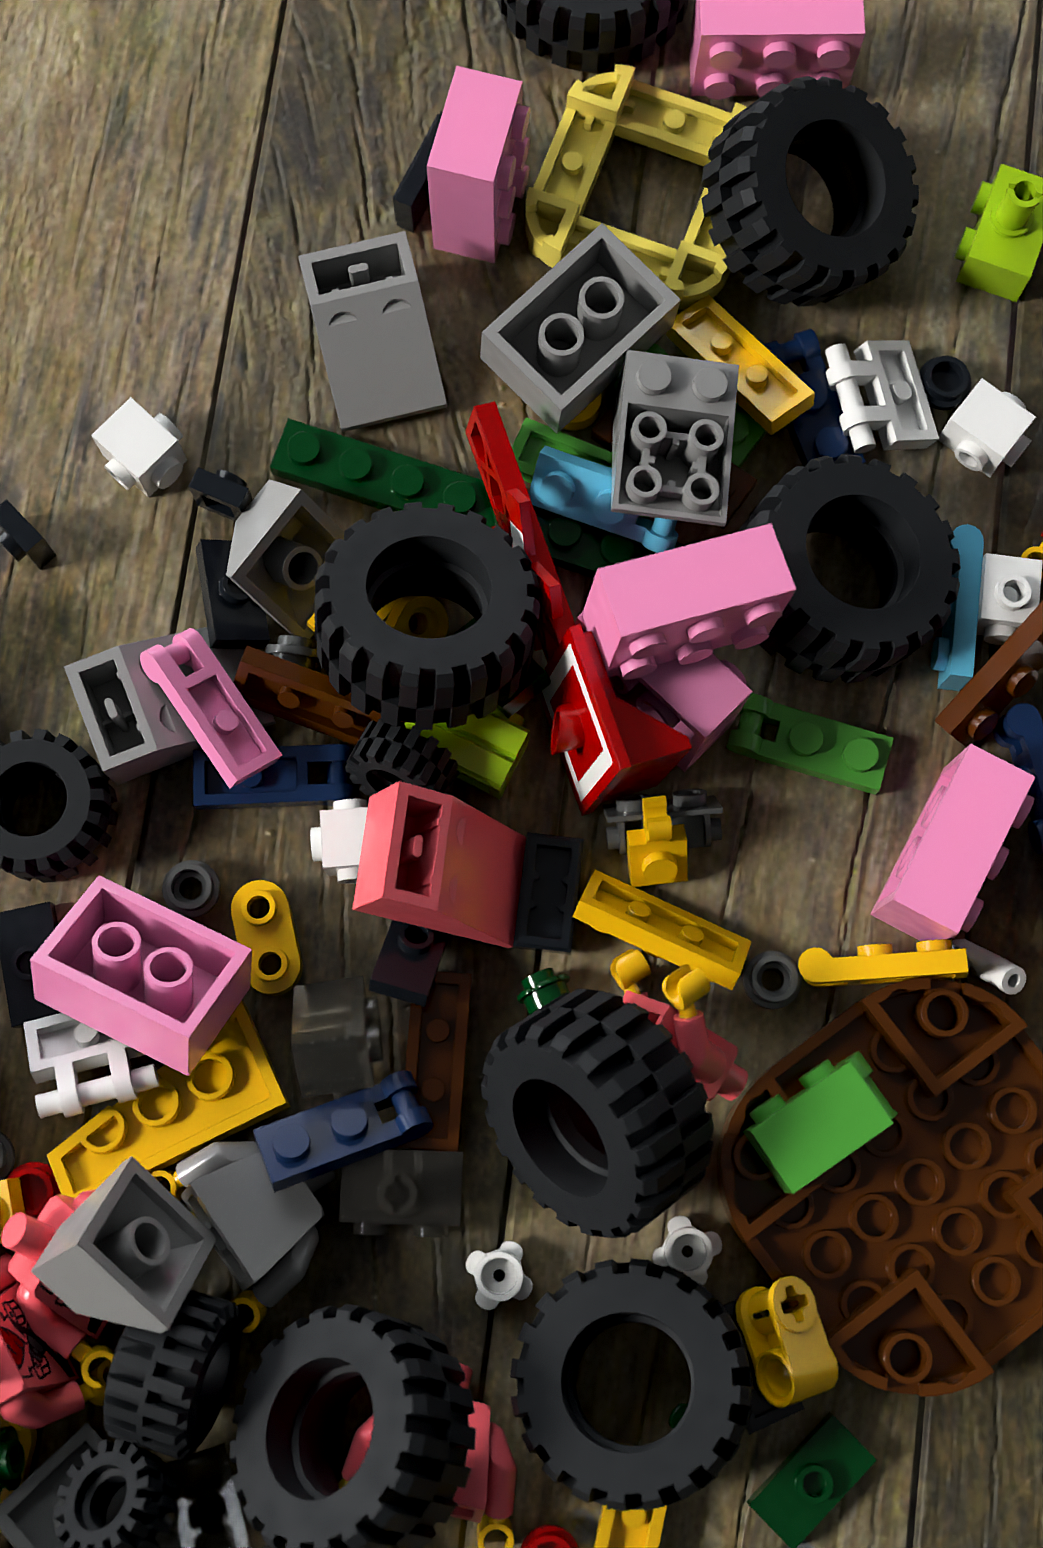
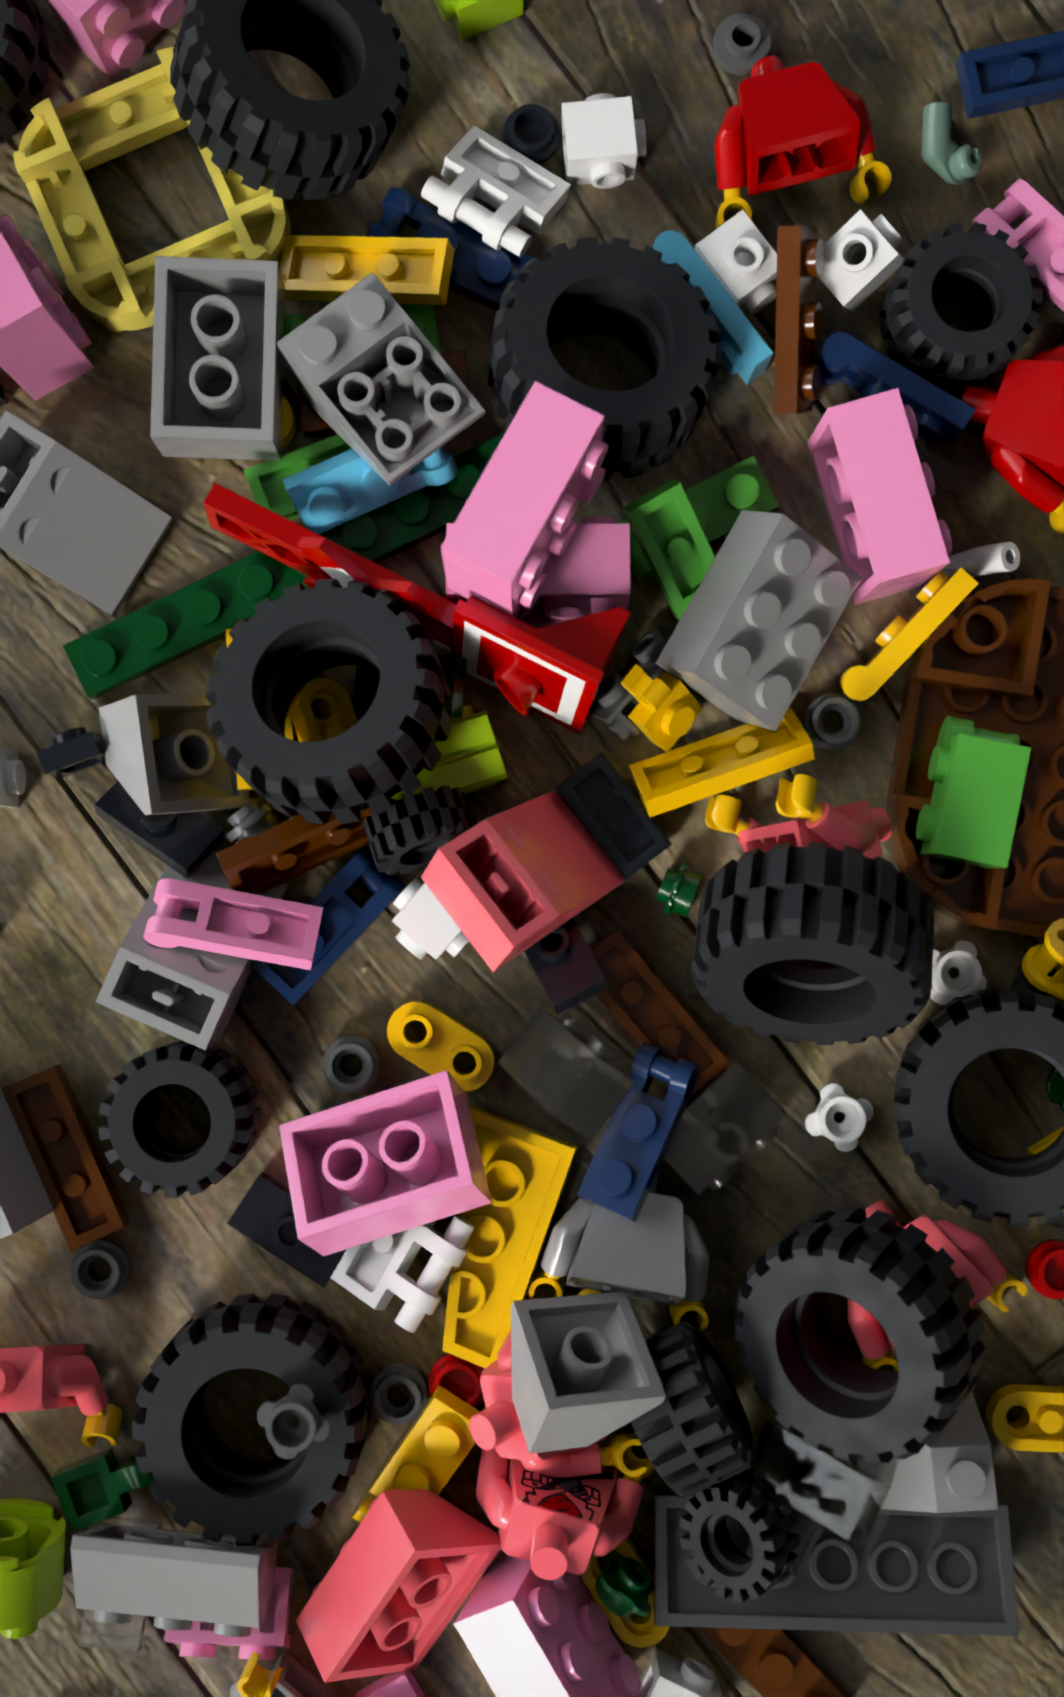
camera: 40 degrees left, 10 degrees up
(769, 760) = (671, 542): none -> bright green plate
(785, 850) = (759, 618): none -> light grey brick

